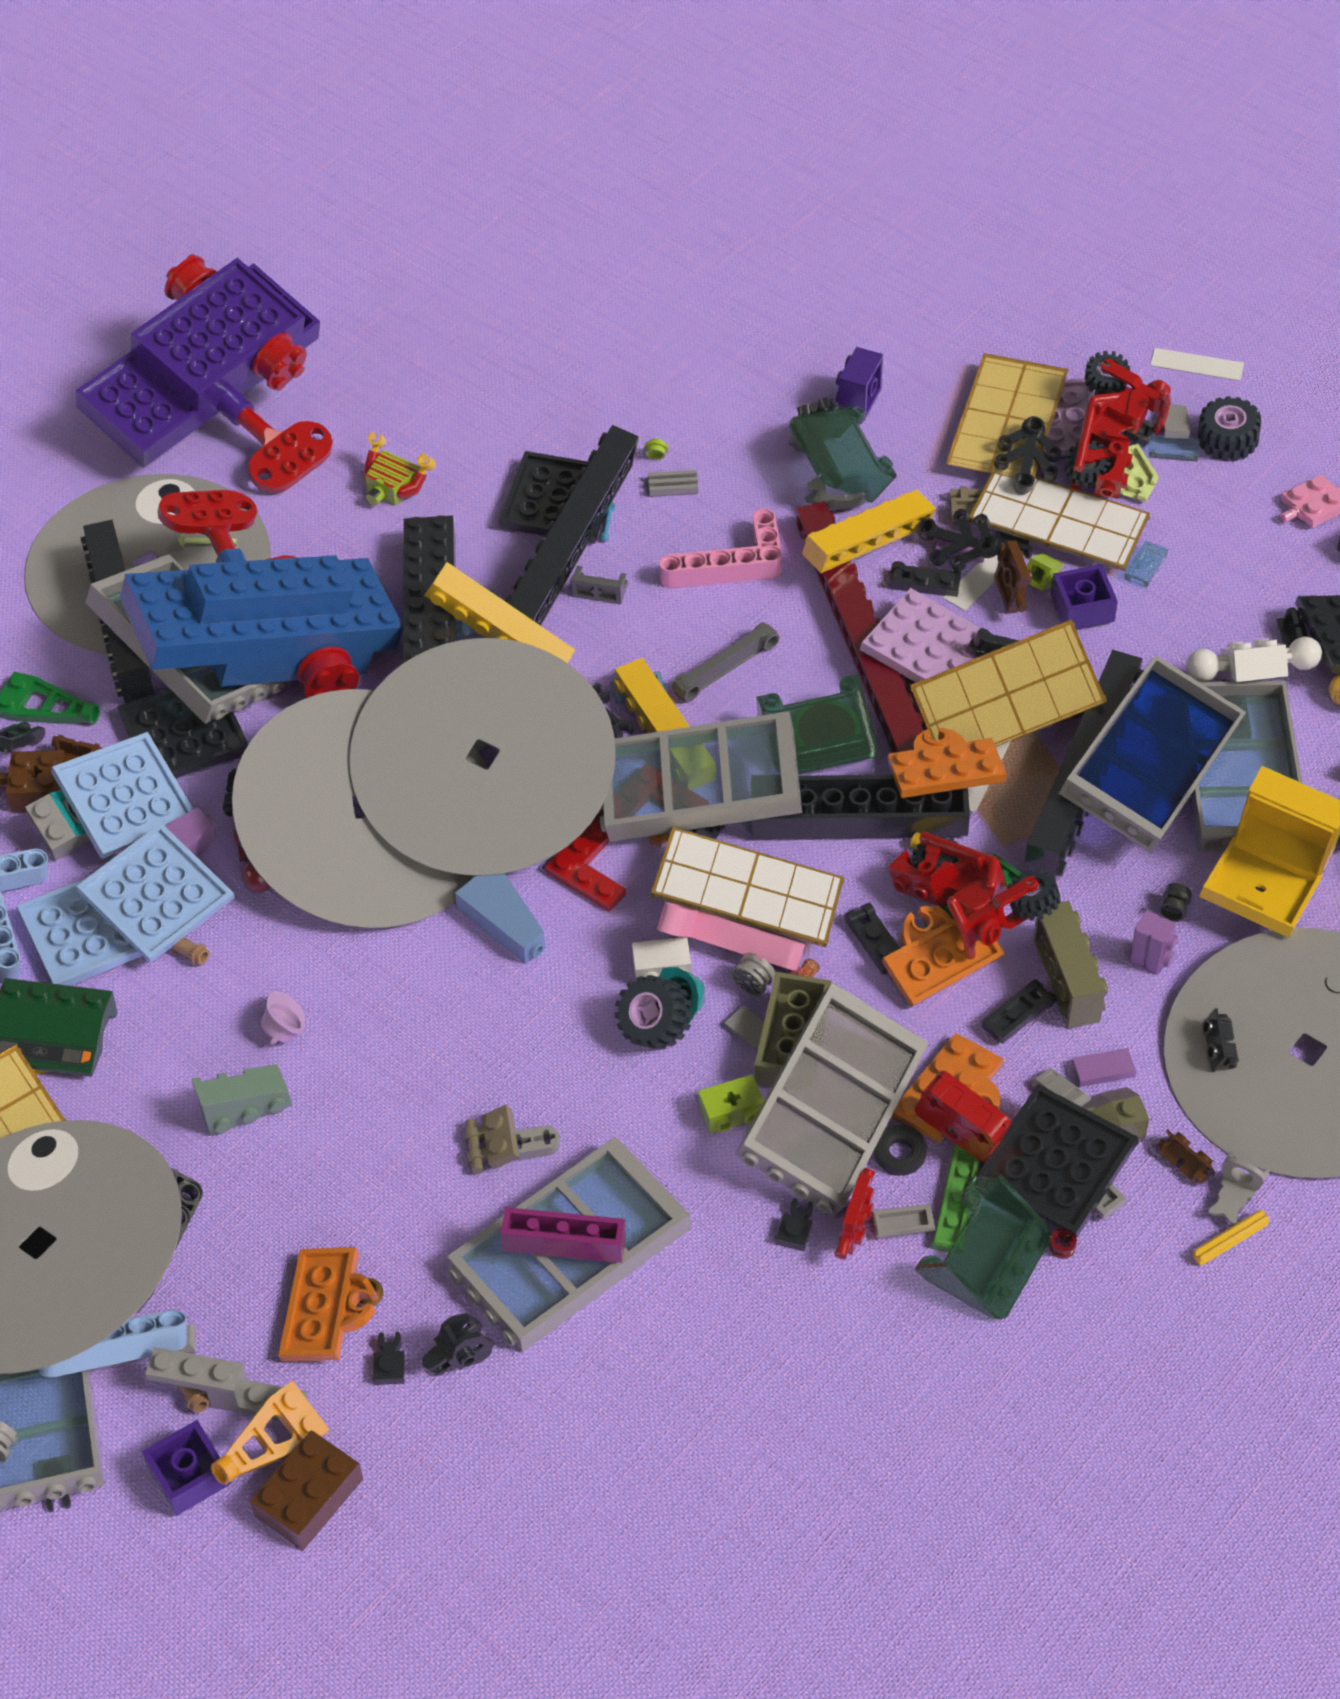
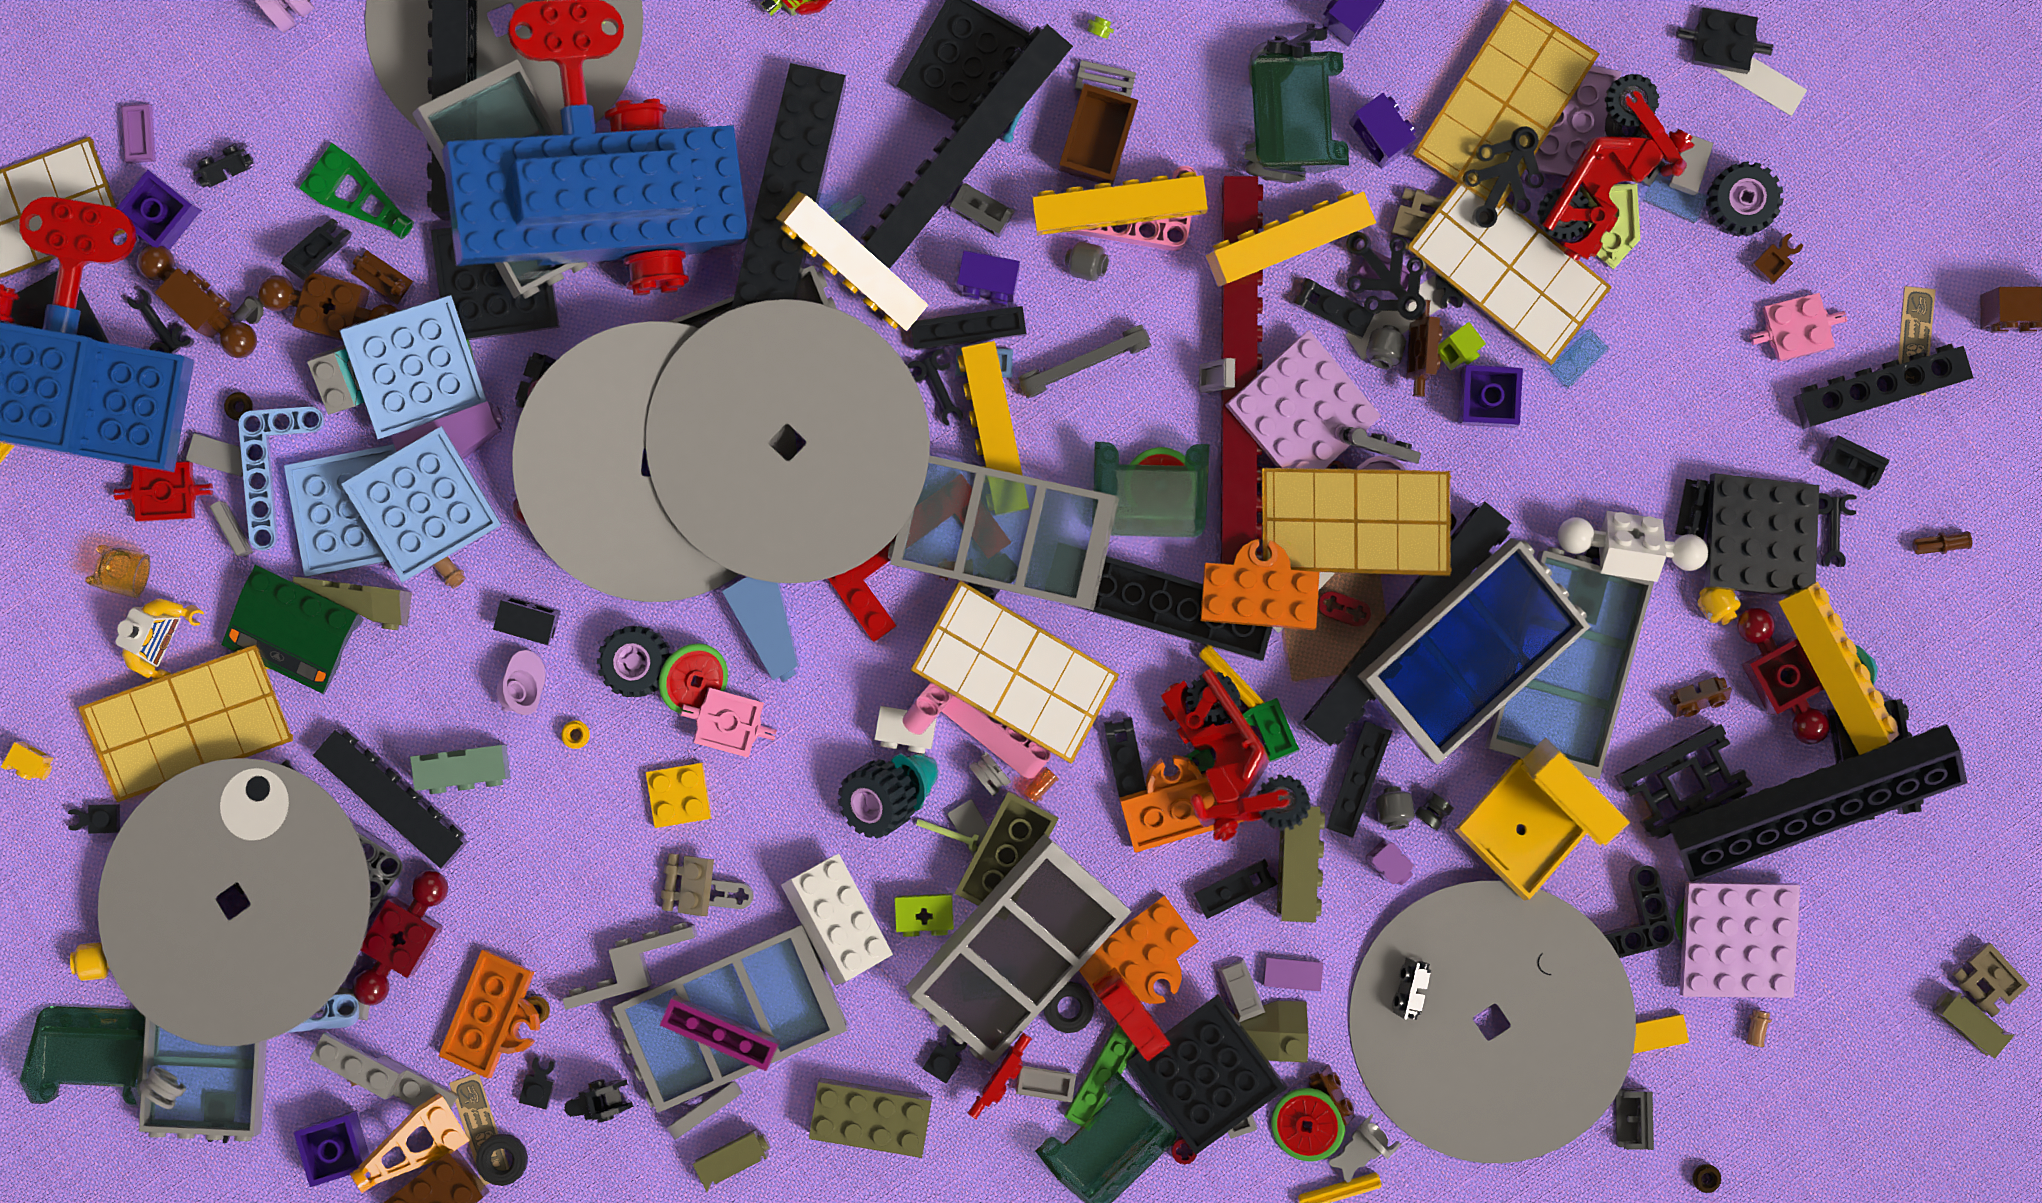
camera: 15 degrees right, 35 degrees up
(130, 977) = (375, 603): none -> olive wedge
(186, 1146) = (391, 798): none -> black brick
(215, 1257) = (419, 931): none -> dark red brick
(276, 965) = (526, 620): none -> black hinge
(344, 1043) = (567, 738): none -> yellow plate
(344, 1427) = (477, 1118): none -> sticker
(364, 1421) = (489, 1172): none -> black tyre
(388, 971) = (633, 661): none -> black wheel
(448, 986) = (679, 670): none -> red wheel
(453, 1224) = (629, 965): none -> light grey bracket
(461, 1074) = (678, 795): none -> yellow plate
(491, 998) = (728, 722): none -> bright pink plate
(567, 1333) = (704, 1110): none -> light grey beam
(603, 667) = (968, 328): none -> black plate
(609, 1368) = (732, 1158): none -> olive window
(621, 617) = (988, 277): none -> dark purple brick
(648, 1123) = (837, 919): none -> white brick
(680, 509) = (1098, 135): none -> reddish brown piece
(702, 594) = (1087, 261): none -> dark grey head
(715, 539) = (1119, 204): none -> yellow brick
(731, 1036) = (954, 835): none -> yellowish green piece
(739, 1291) = (870, 1117): none -> olive brick
(844, 635) = (1217, 375): none -> light grey tile
(915, 450) = (1383, 129): none -> dark purple brick
(980, 590) = (1385, 347): none -> dark grey head
(1026, 776) = (1346, 602): none -> dark red beam
(1096, 896) = (1358, 779): none -> black plate
(1135, 904) = (1395, 808): none -> dark grey head
(1163, 346) = (1724, 40): none -> black plate
(1181, 1201) = (1303, 1142): none -> red wheel
(1275, 463) = (1775, 260): none -> reddish brown plate

